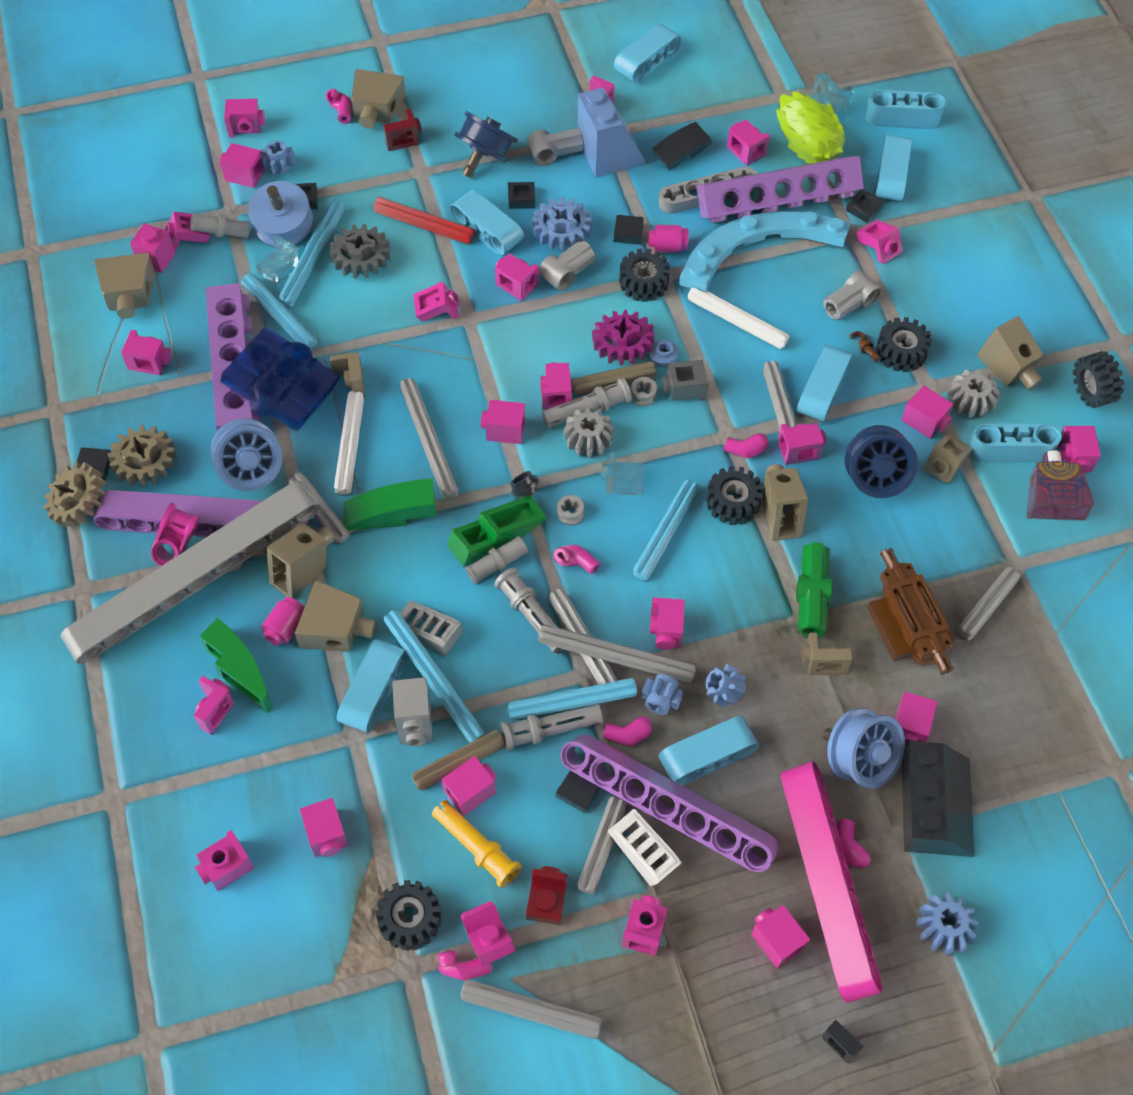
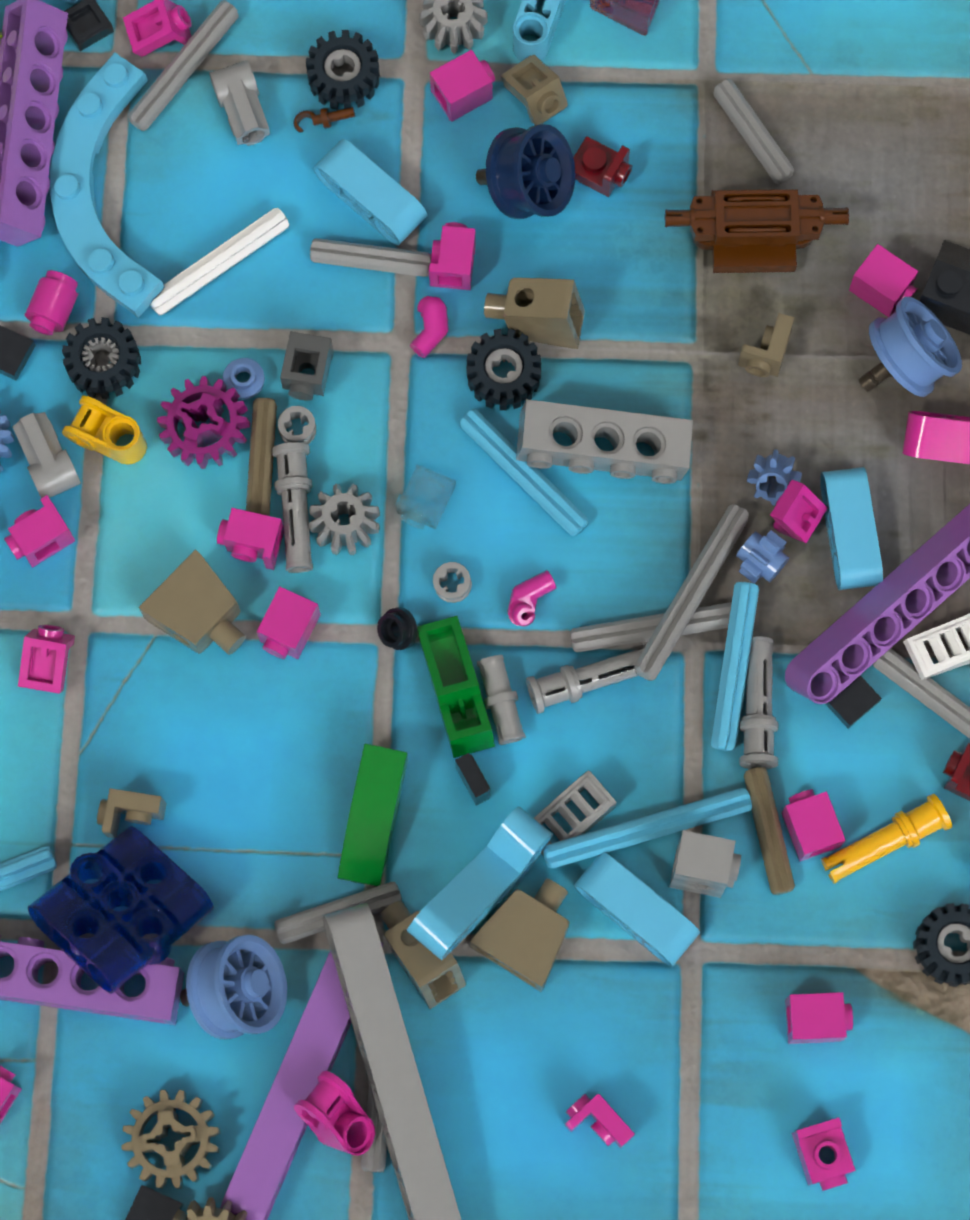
camera: 70 degrees left, 15 degrees up
(235, 663) = (553, 1074): green slope -> none
(282, 621) = (507, 1000): dark pink brick -> none
(349, 443) = (243, 844): white axle -> none
(350, 570) = (480, 884): none -> medium azure beam
(429, 439) = (273, 734): light grey axle -> none
(433, 557) = (472, 778): none -> black tile
(498, 368) = (195, 607): none -> dark tan torso
(596, 292) = (99, 428): none -> yellow piece
(630, 734) = (798, 610): dark pink arm -> none
(667, 622) = (666, 516): dark pink brick -> none
(700, 520) = (666, 435): none -> light grey brick
(703, 704) = (798, 512): none -> dark pink bracket
(813, 589) = (673, 325): green piece -> none
(862, 261) = (183, 65): none -> light grey axle
(912, 513) = (601, 166): none -> dark red bracket

